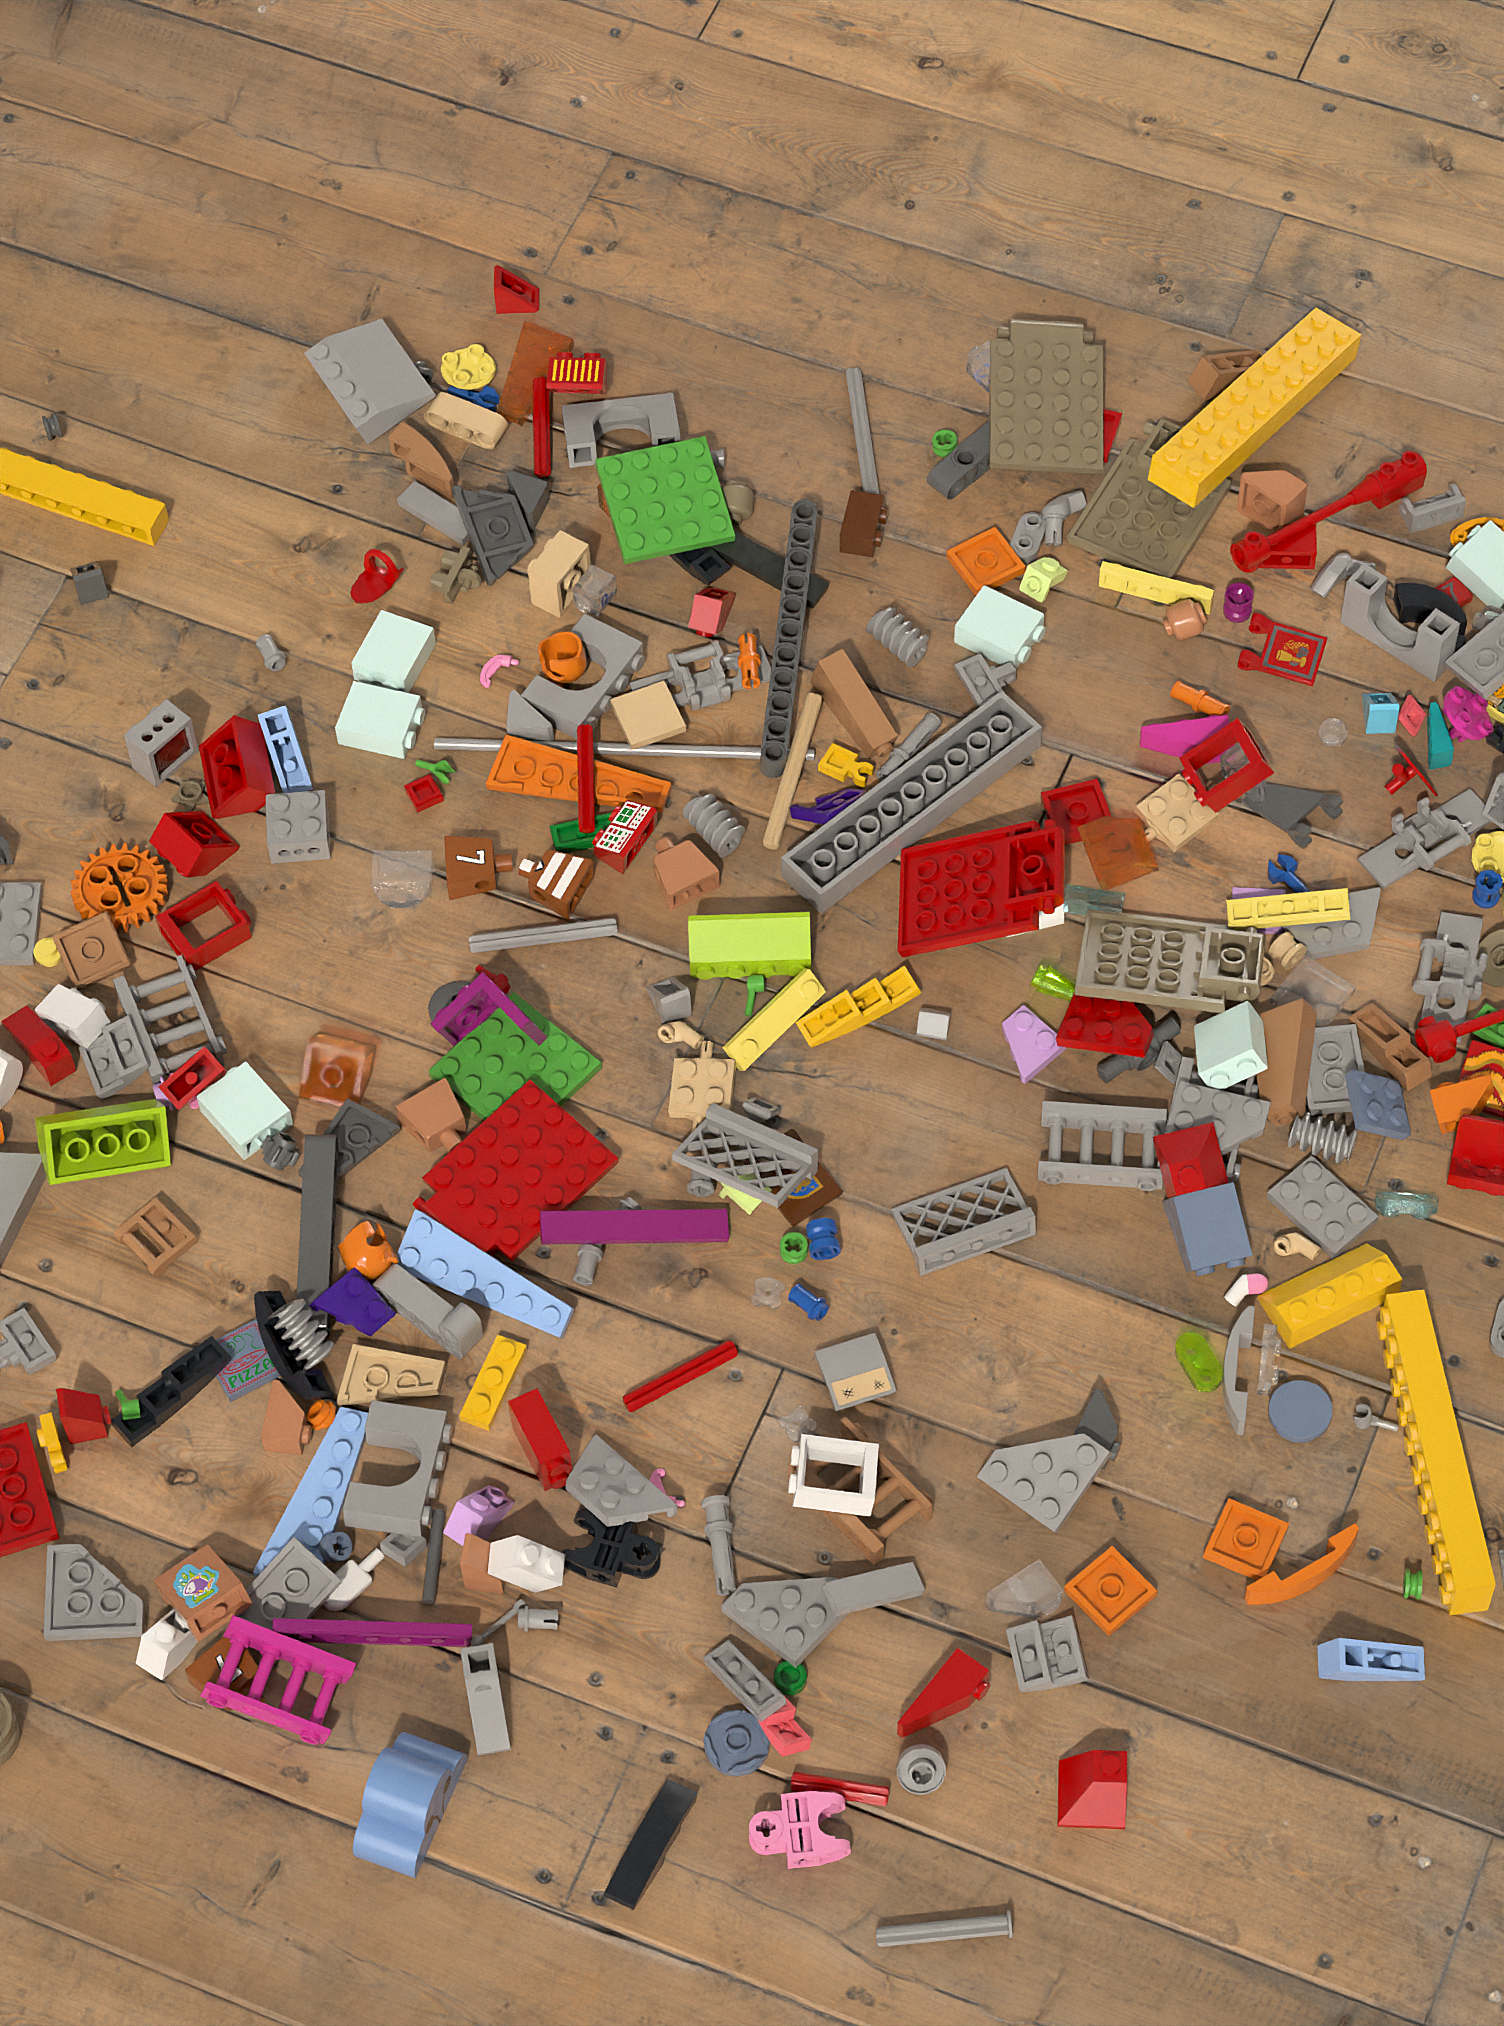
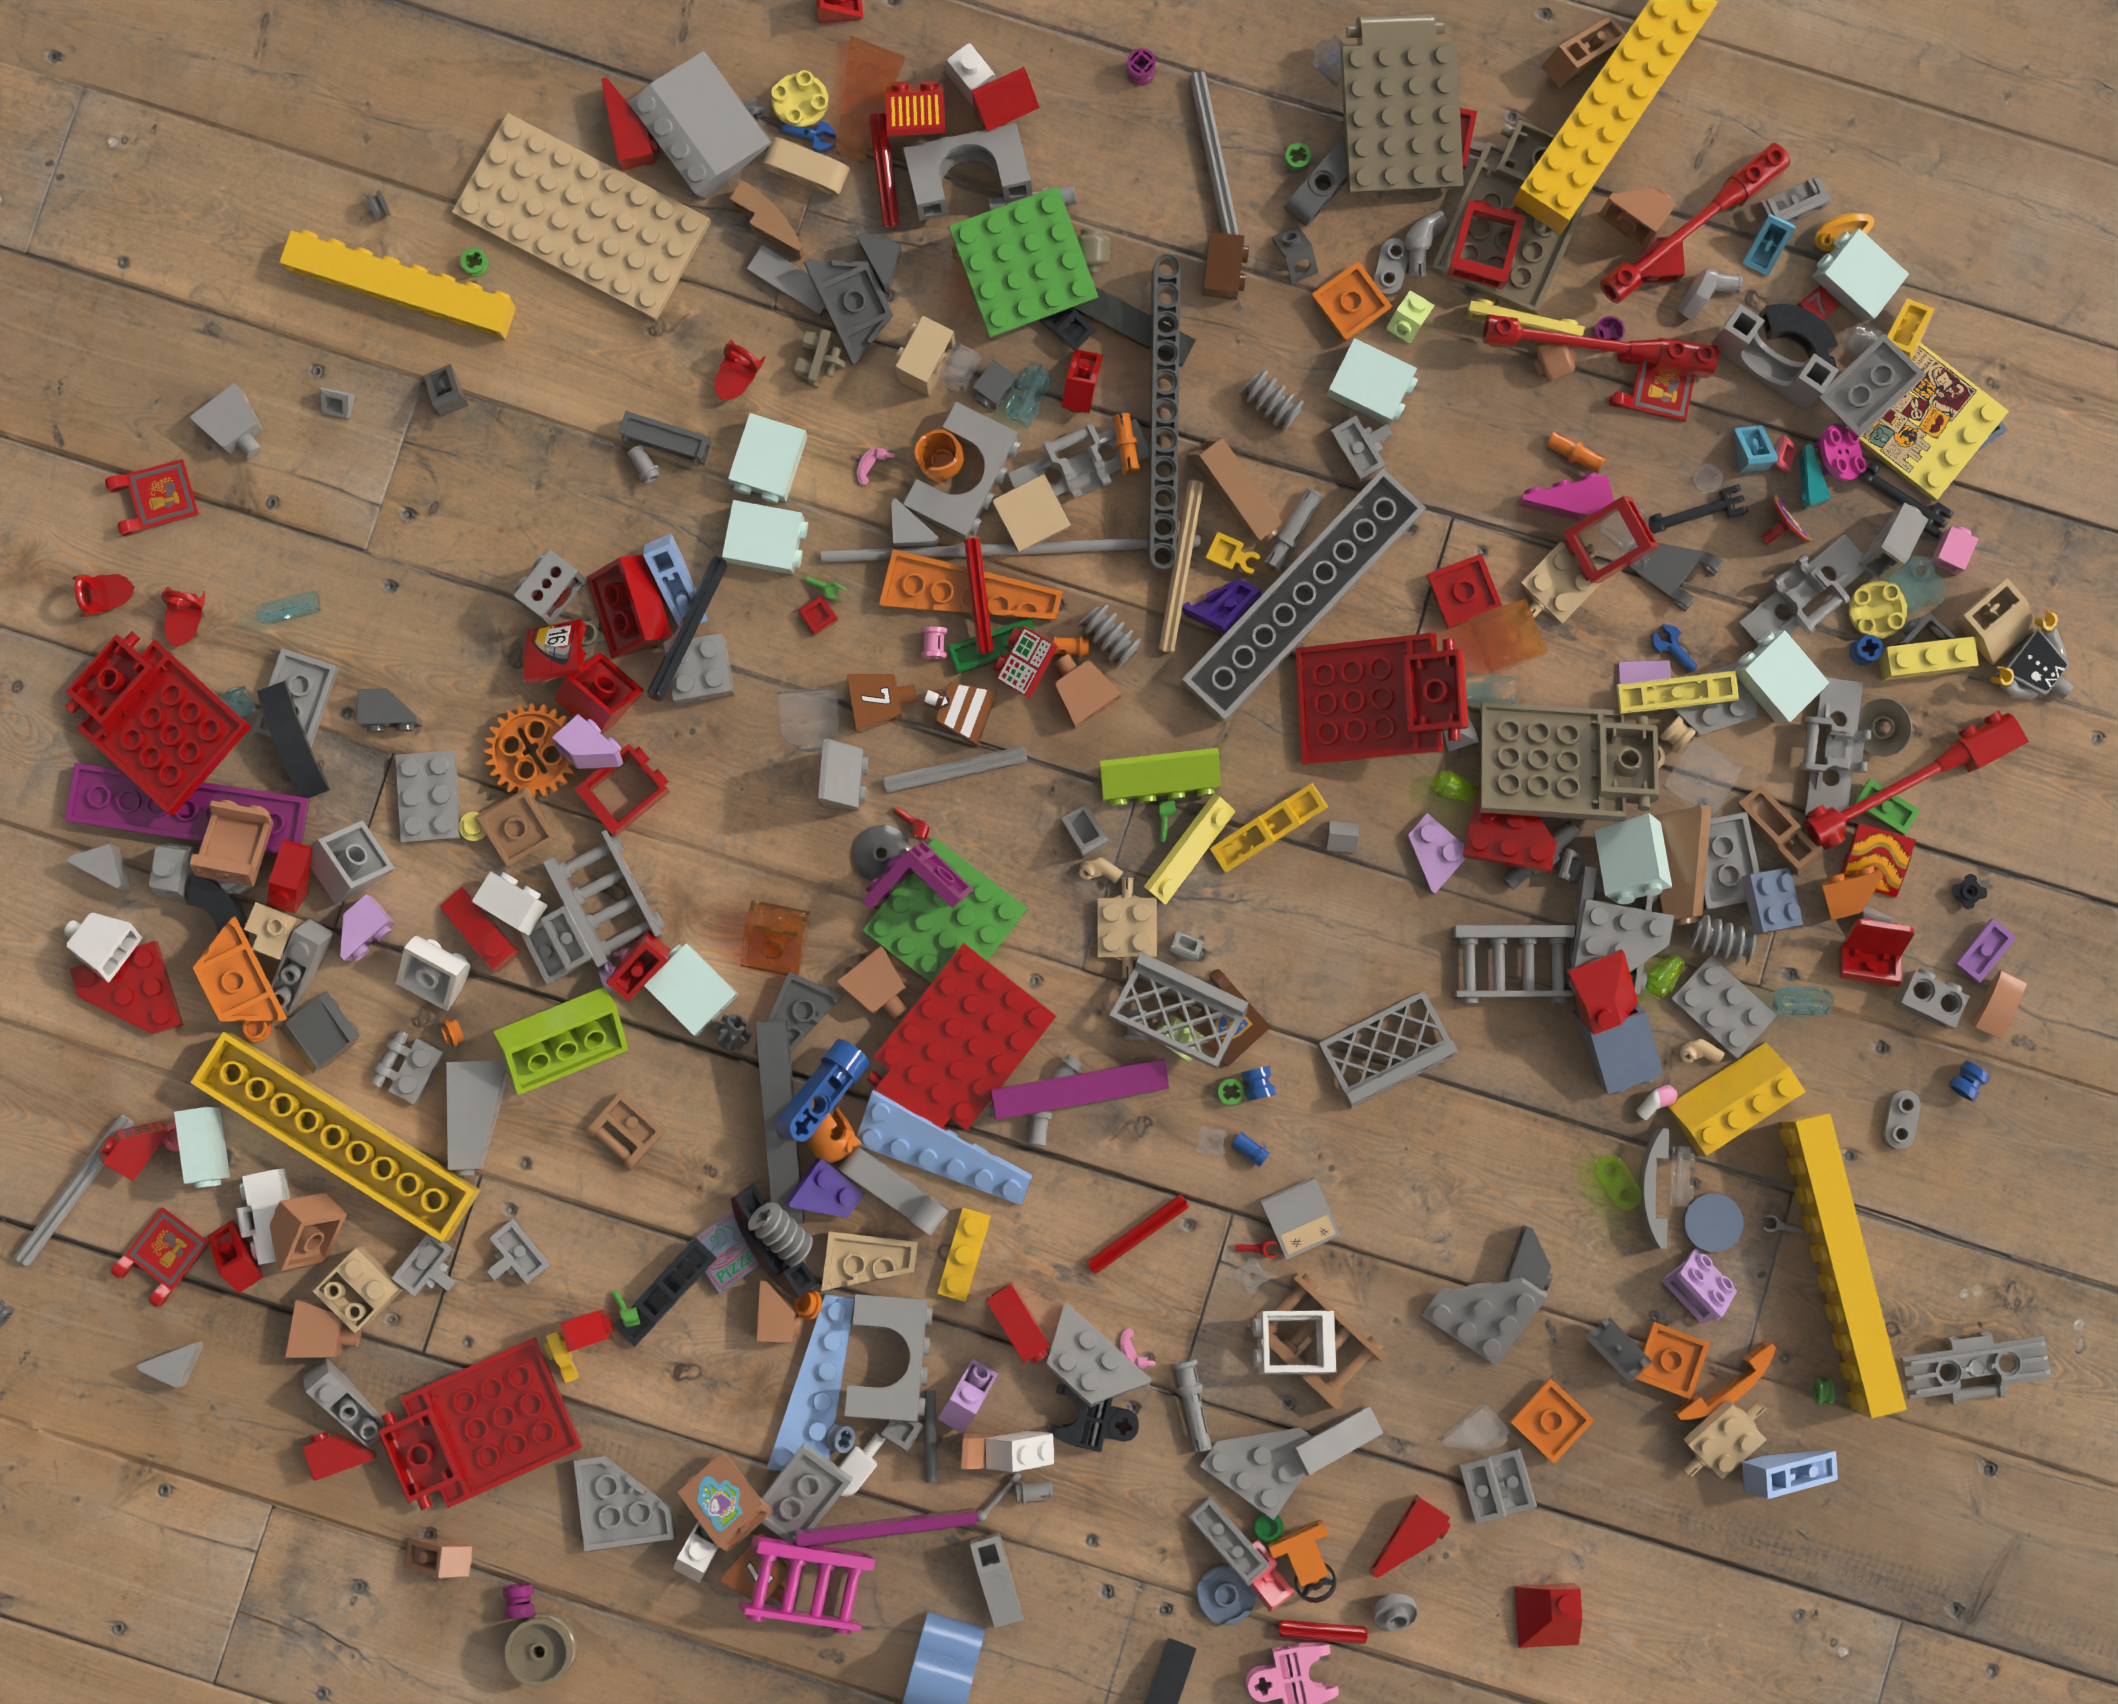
camera: 10 degrees left, 25 degrees up
(134, 472) = (472, 253): none -> bright green bush
(155, 797) = (554, 651): none -> red slope
(174, 875) = (585, 746): none -> lavender slope
(245, 450) = (581, 216): none -> tan plate
(290, 781) = (687, 629): none -> black axle
(296, 630) = (665, 437): none -> dark grey container
(301, 381) = (630, 134): none -> red slope
(386, 1187) = (841, 1068): none -> blue beam
(425, 921) = (842, 776): none -> light grey slope
(536, 821) = (933, 643): none -> bright pink bush
(625, 607) = (994, 386): none -> dark grey brick
(628, 349) = (968, 70): none -> white torso
(662, 368) = (1004, 99): none -> red slope
(663, 616) = (1025, 406): none -> clear light blue hinge
(677, 833) = (1072, 646): none -> orange pin
(799, 360) = (1141, 73): none -> magenta wheel
(809, 1400) = (1257, 1248): none -> red hand
(827, 1705) = (1306, 1560): none -> orange piece
(932, 512) = (1295, 247): none -> dark grey bracket
(1063, 940) = (1467, 738): none -> light grey slope
(1123, 540) = (1477, 271): none -> red window
(1187, 1521) = (1619, 1349): none -> dark grey hinge
(1260, 1172) = (1664, 977): none -> clear neon green cone
(1280, 1469) = (1701, 1287): none -> lavender bracket
(1298, 1619) = (1725, 1439): none -> tan plate
(1299, 619) = (1669, 354): none -> red bar
(1354, 754) = (1659, 524): none -> black hinge
(1395, 902) = (1780, 676): none -> light aqua brick
(1403, 536) = (1768, 244): none -> medium azure slope

